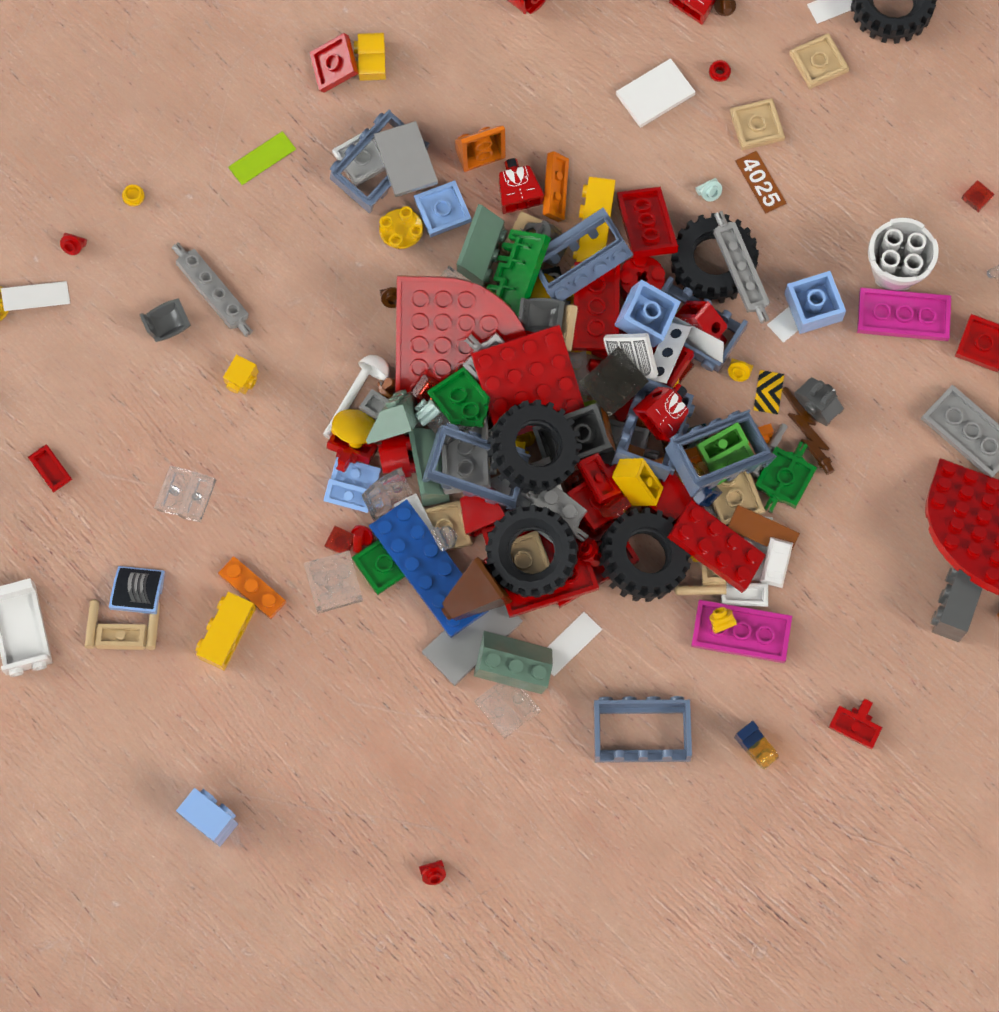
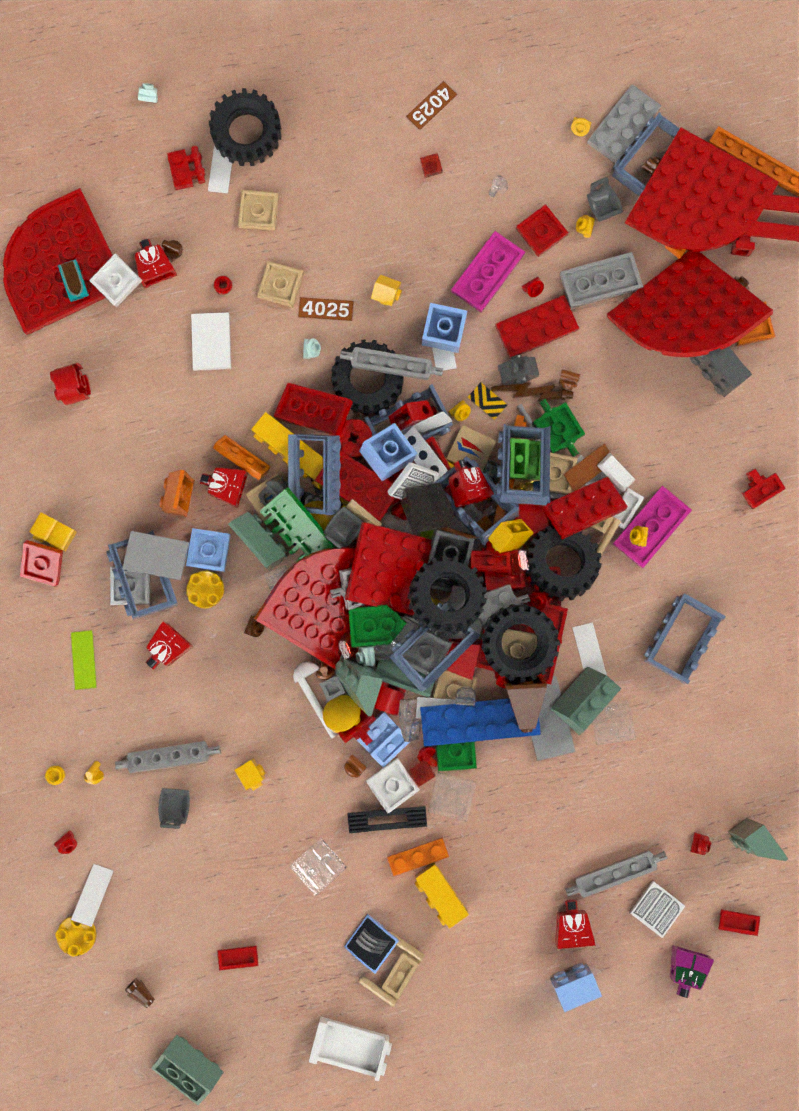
camera: 60 degrees left, 10 degrees up
(155, 228) = (94, 775): none -> yellow plate
(253, 508) = (359, 820): none -> black container
(268, 784) = (573, 927): none -> red torso
(292, 931) = (689, 969): none -> magenta torso
(307, 471) = (354, 767): none -> dark orange plate
(310, 519) = (392, 785): none -> white tile
(322, 224) = (166, 646): none -> red torso
(337, 865) = (657, 909): none -> tile
(350, 798) = (616, 873): none -> light grey plate
(373, 960) = (739, 922): none -> red tile
(469, 916) = (756, 839): none -> sand green slope
(710, 401) = (473, 445): none -> tan tile
(756, 745) = (737, 566): leg -> none
(816, 225) = (386, 290): none -> yellow brick
(843, 458) = (569, 379): none -> dark orange plate
(879, 396) = (537, 326): none -> red plate
(902, 254) = (452, 244): white cone -> none
(918, 369) = (533, 287): none -> red plate

